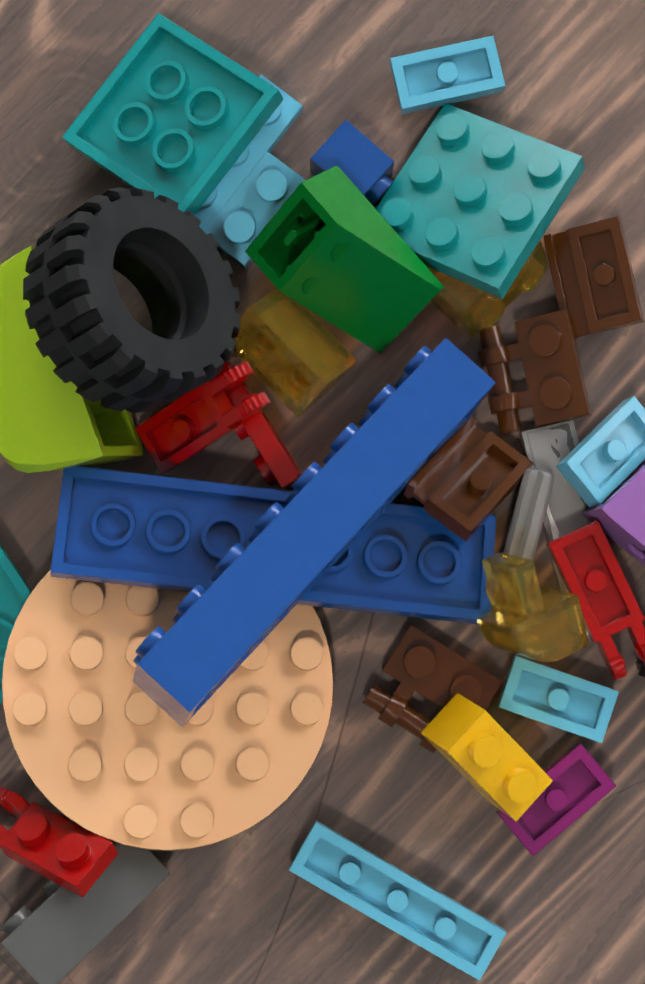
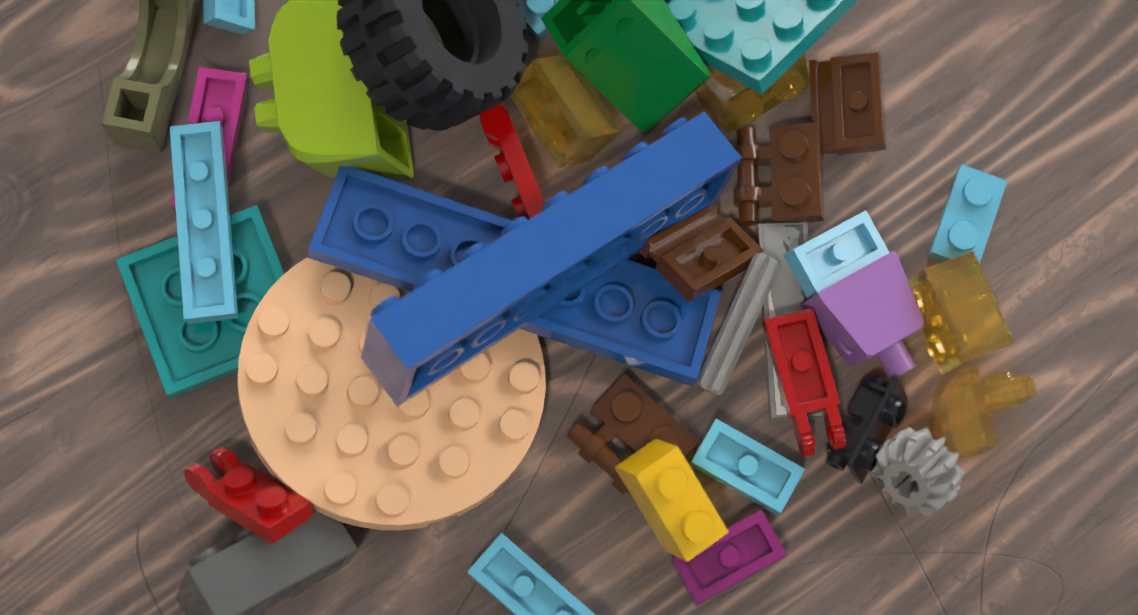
camera: 10 degrees right, 10 degrees down
(198, 419) = (471, 150): red hinge -> none
(529, 618) = (728, 383): clear yellow brick -> none

